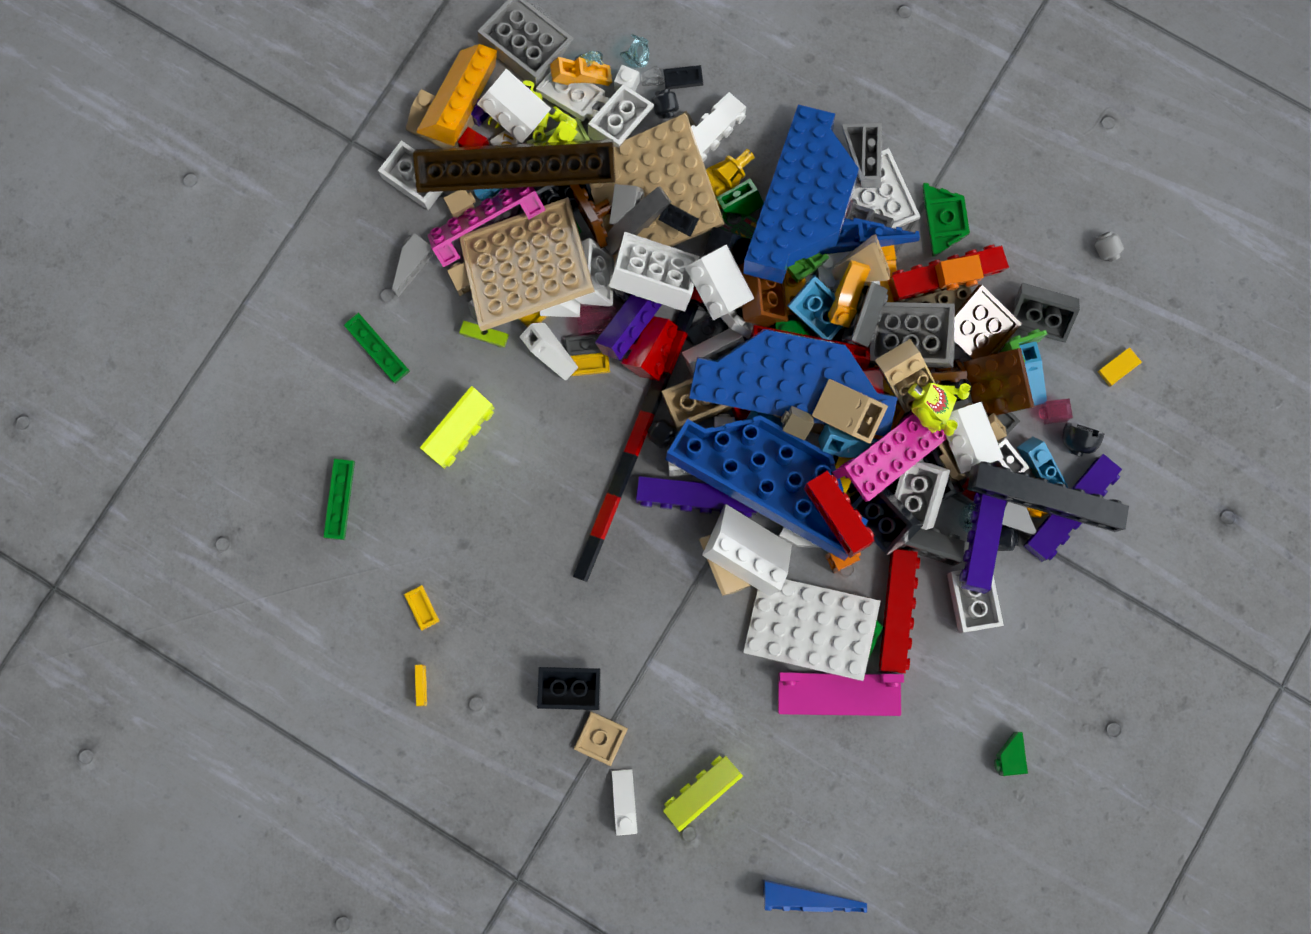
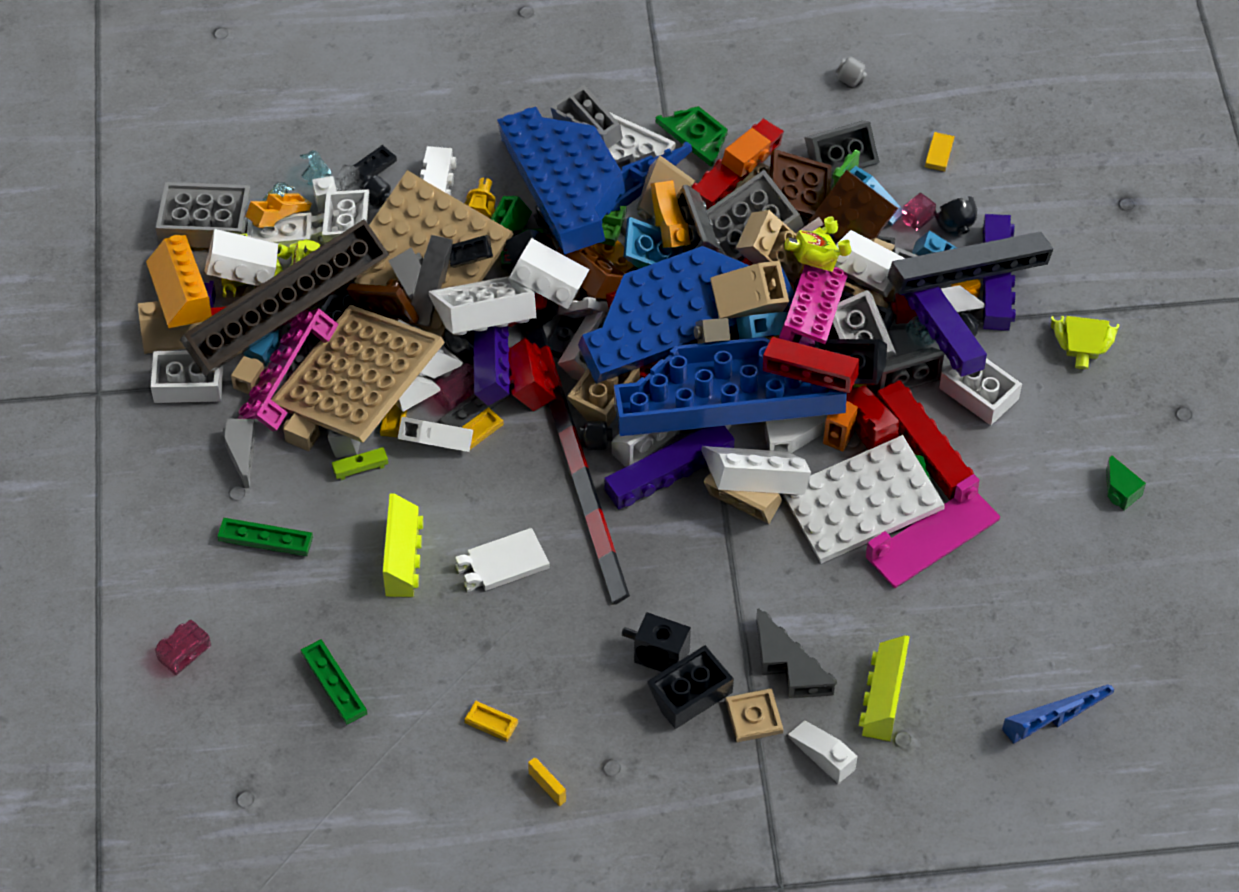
camera: 40 degrees left, 25 degrees down
(259, 397) = (182, 646): none -> clear pink brick
(524, 487) = (502, 561): none -> white tile
(565, 632) = (659, 642): none -> black piece
(654, 708) = (783, 655): none -> dark grey slope
(870, 572) = (873, 420): none -> red wedge
(1089, 615) = (1084, 337): none -> neon yellow torso

